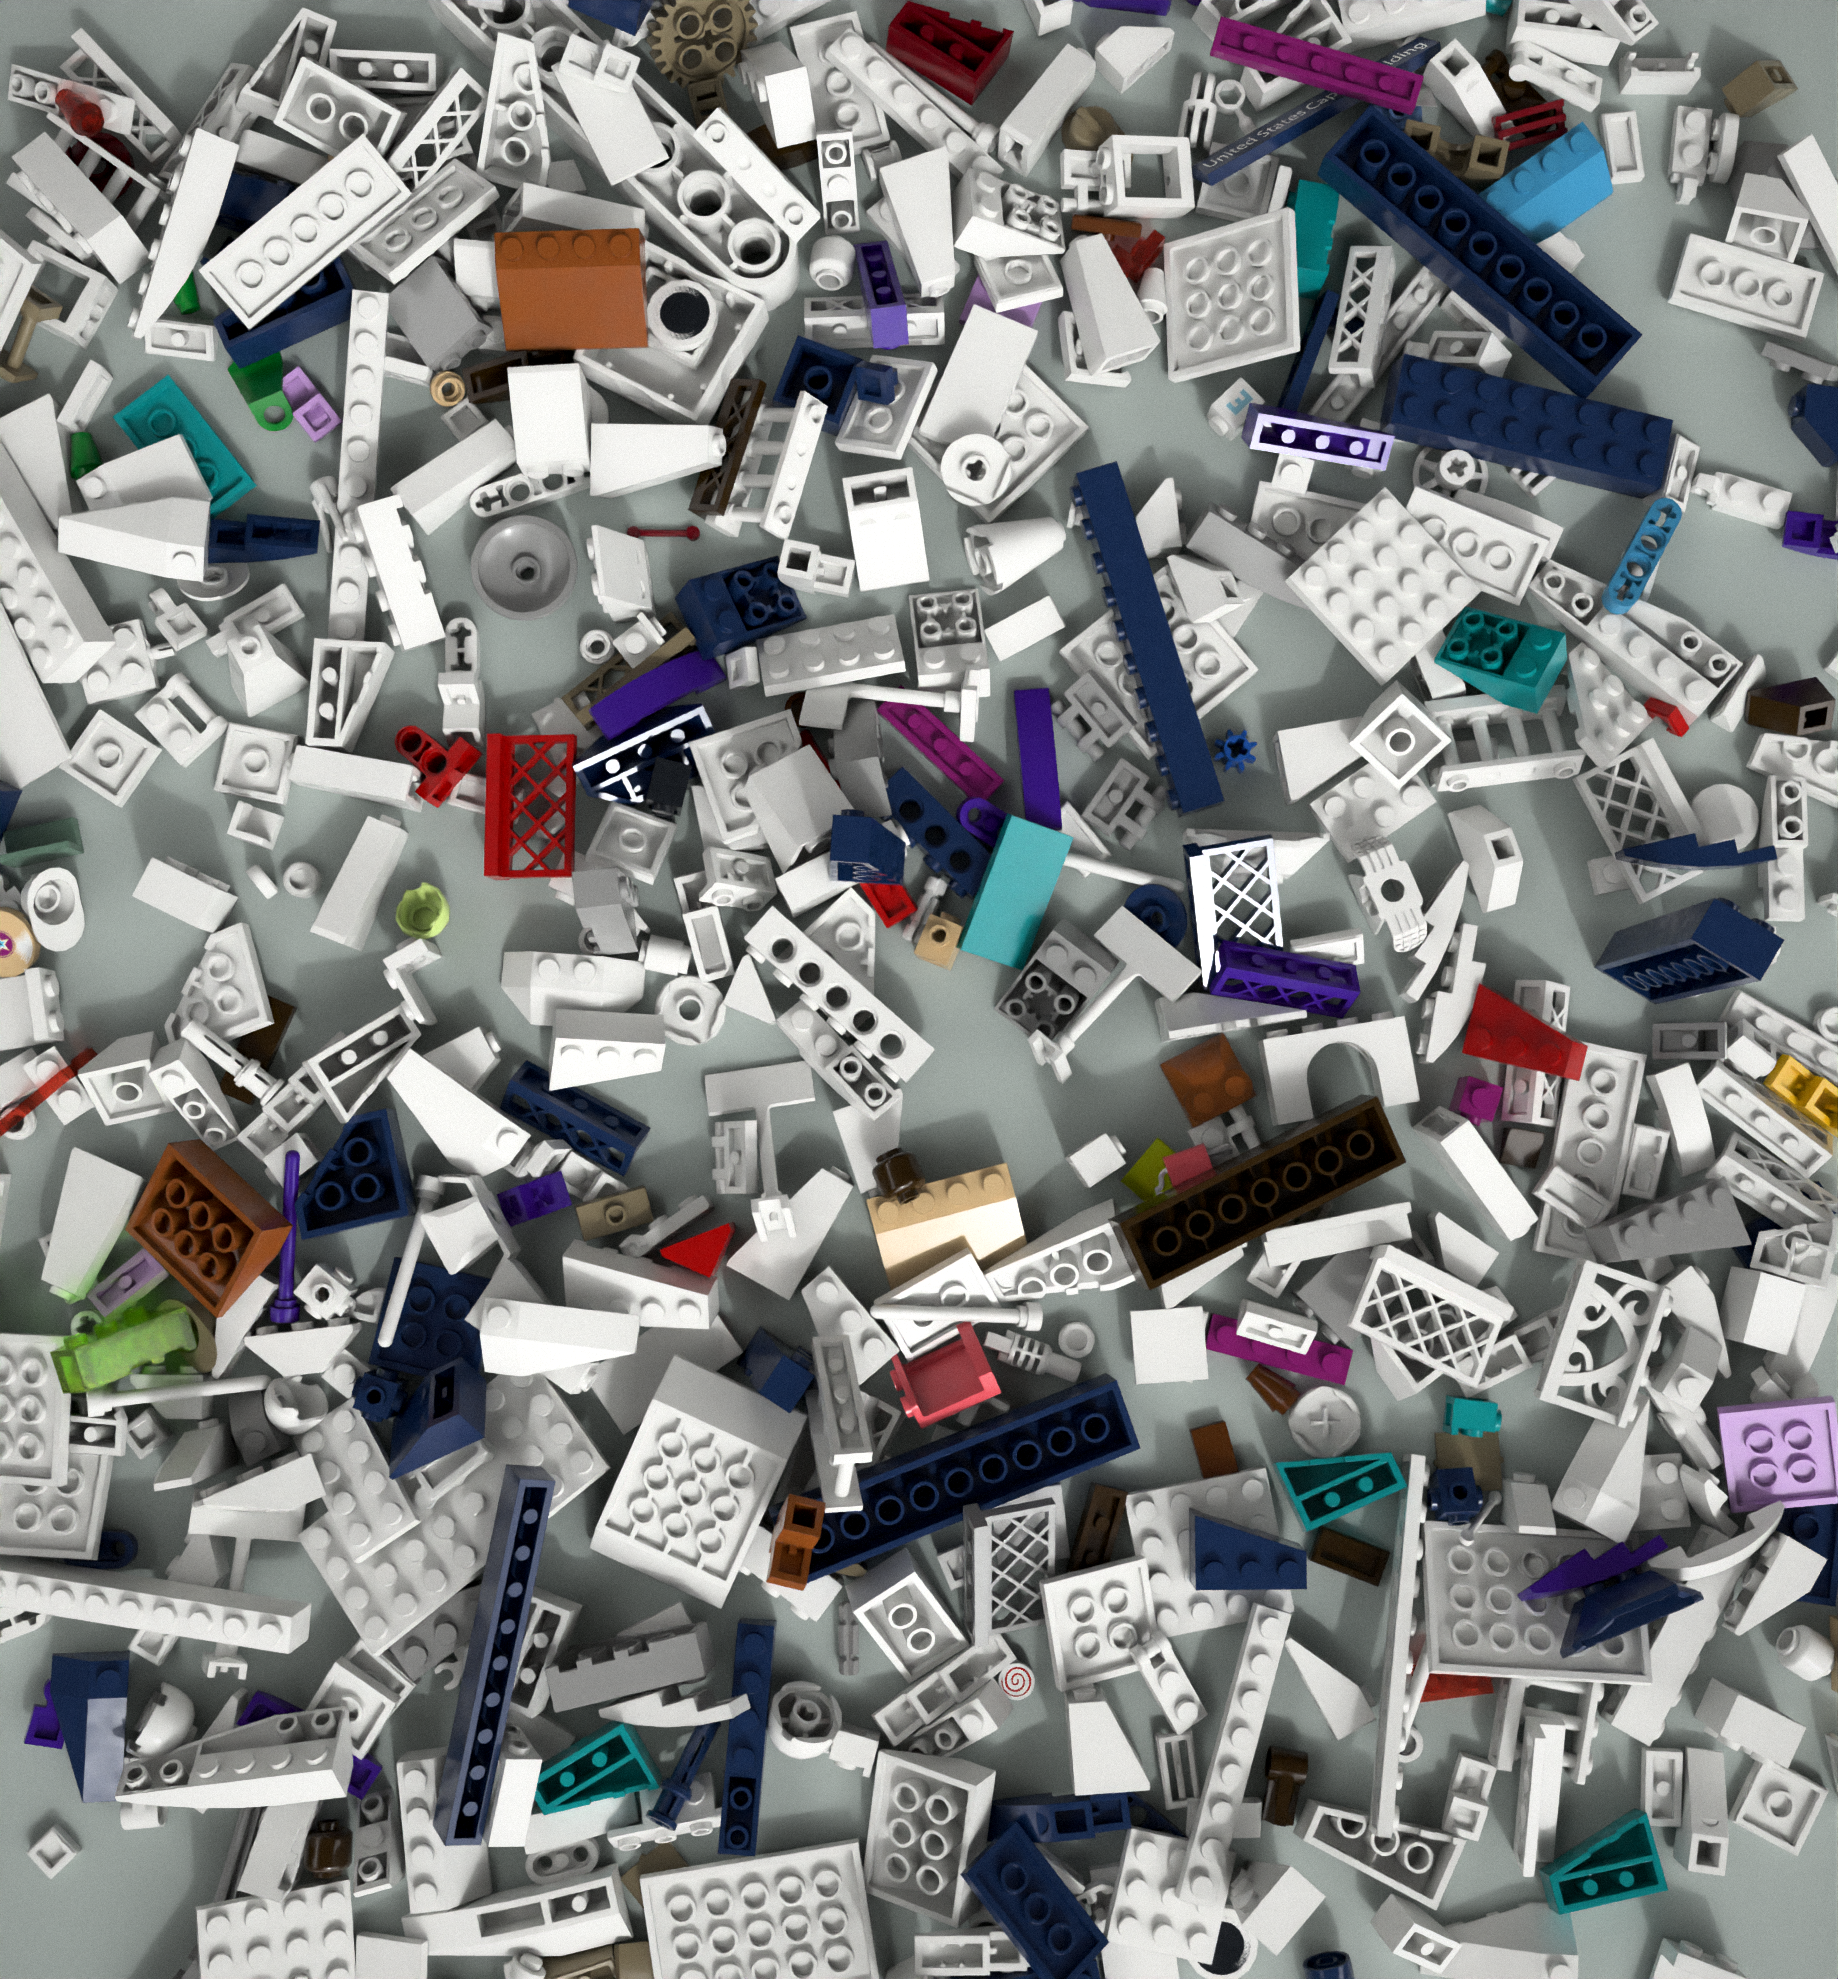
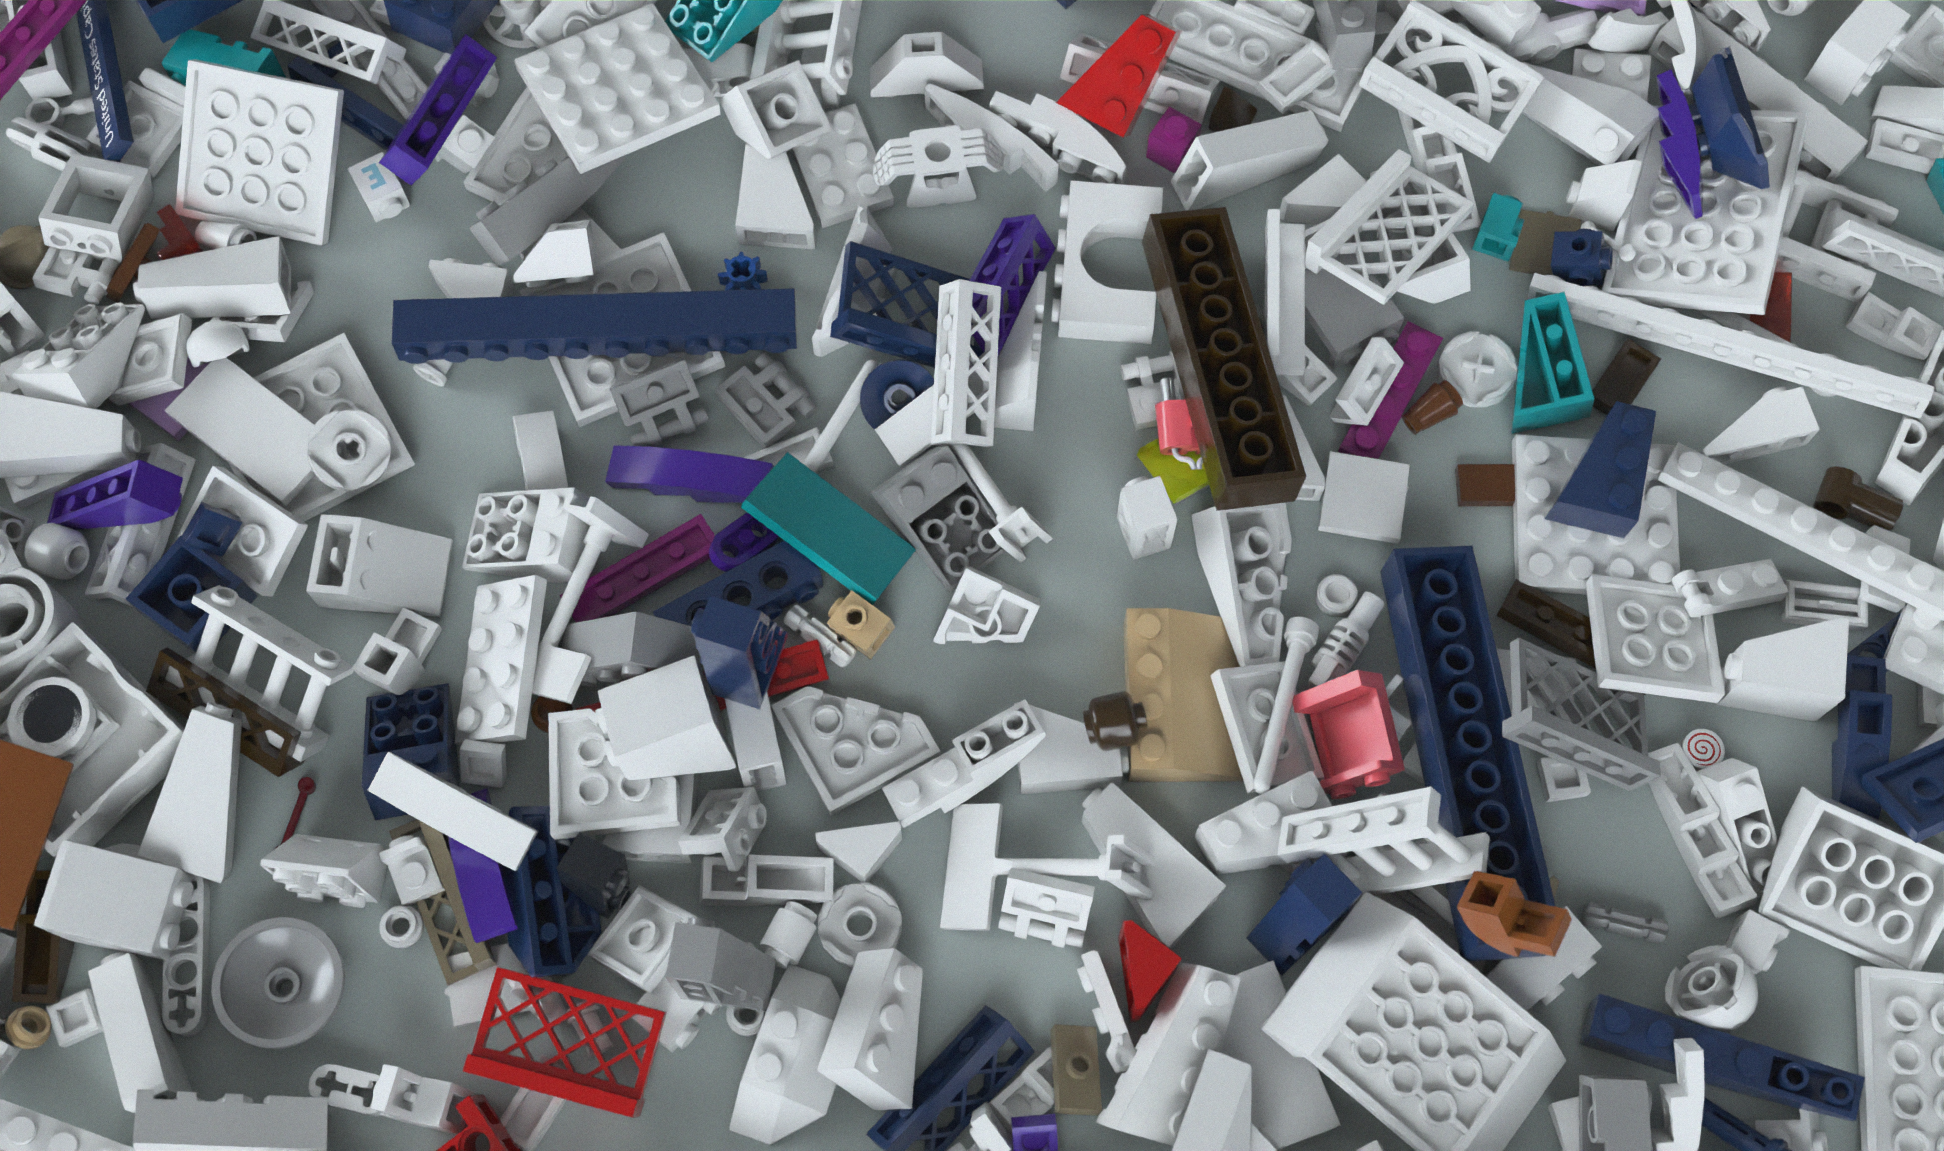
camera: 75 degrees left, 15 degrees down
(683, 657) = (452, 811): none -> white slope
(776, 928) = (971, 676): white brick -> none
(906, 1615) = (1610, 849): white slope -> none
(983, 1044) = (986, 611): none -> white slope
(1011, 549) = (449, 445): white cone -> none
(1044, 325) = (215, 341): none -> white hair
(1188, 957) = (953, 360): none -> white fence
(1208, 1080) = (1087, 392): dark orange slope -> none
(1338, 946) = (979, 228): white plate -> none

